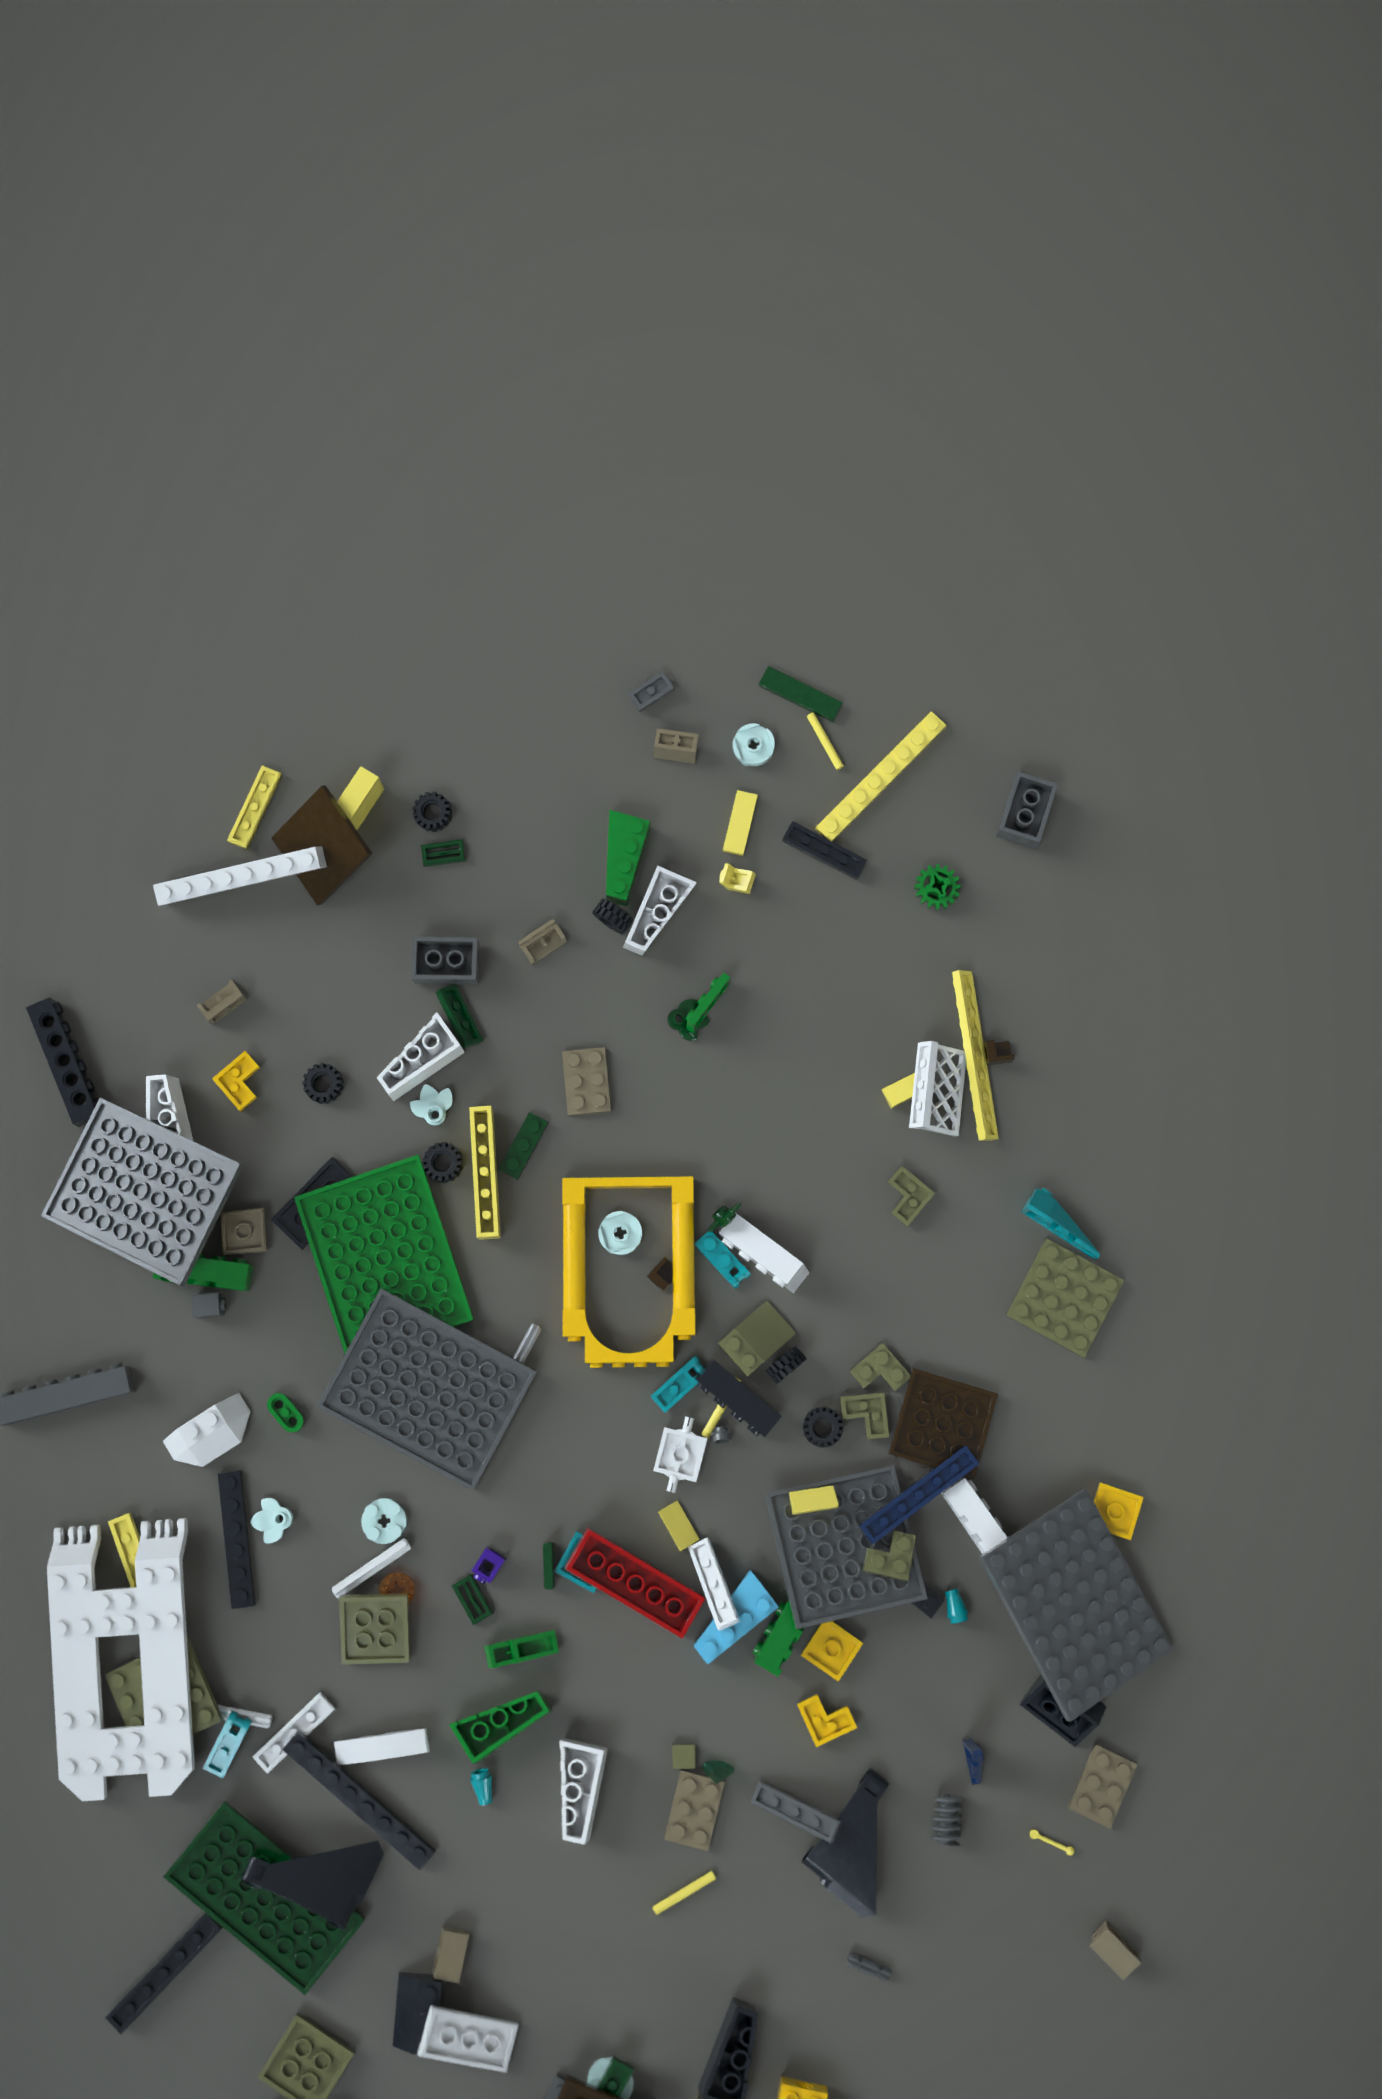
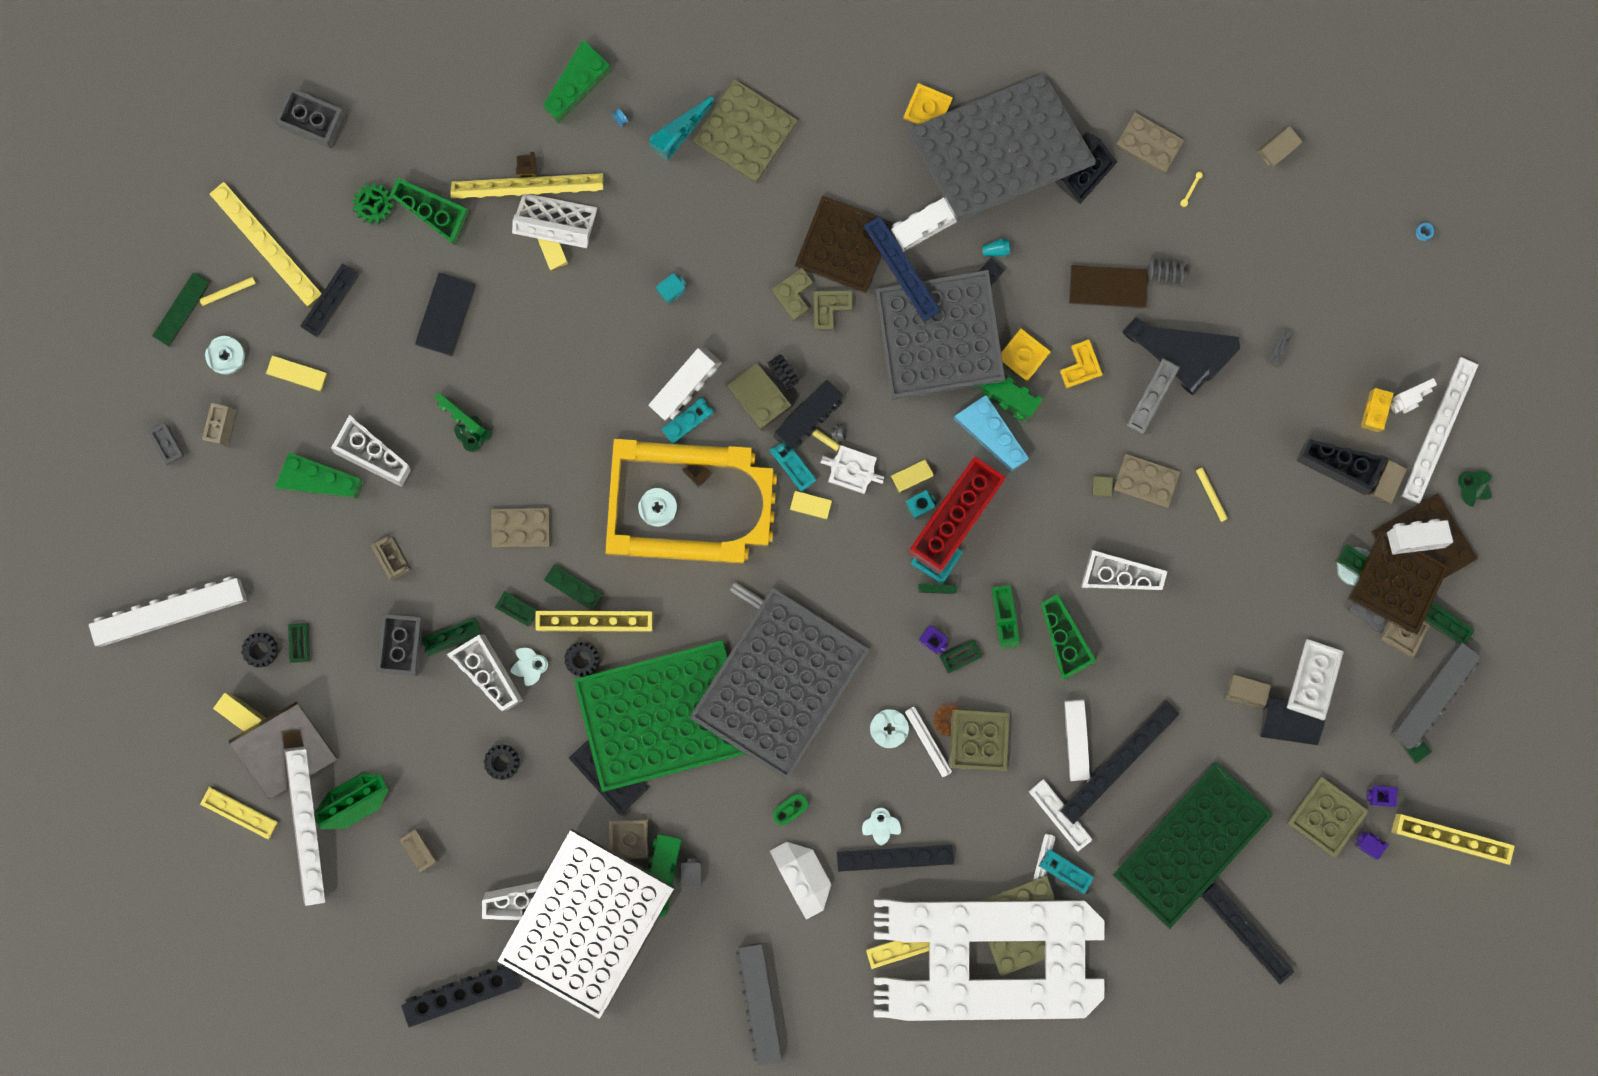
camera: 85 degrees left, 5 degrees up
(232, 1080) = (489, 843): yellow plate -> none
(270, 923) = (351, 802): none -> green wedge
(322, 1882) = (1183, 791): black panel -> none
(467, 712) = (167, 612): none -> white brick
(482, 1785) = (1112, 657): teal cone -> none
(494, 1084) = (516, 609): none -> dark green plate
(612, 916) = (373, 492): black tyre -> none
(636, 1409) = (810, 505): none -> light yellow tile
(642, 1529) = (915, 510): none -> teal brick
(714, 1584) = (963, 448): white tile -> none
(717, 1770) = (1115, 458): clear green tile -> none
(723, 1217) = (651, 415): dark green plate -> none
(737, 879) = (349, 379): light yellow bracket -> none
(813, 1500) = (899, 357): light yellow slope -> none
(820, 977) = (445, 314): none -> black tile
(832, 1437) = (835, 335): black tyre -> none
(873, 1228) = (671, 288): none -> teal brick
(895, 1563) = (956, 293): olive plate -> none
(915, 1195) = (645, 249): olive plate -> none
(923, 1746) = (1108, 286): none -> dark brown tile
(934, 958) = (439, 213): none -> green wedge
(974, 1760) = (1120, 244): dark blue wing -> none
(1064, 1152) = (620, 117): none -> dark azure bush
(1101, 1100) = (578, 79): none -> green wedge

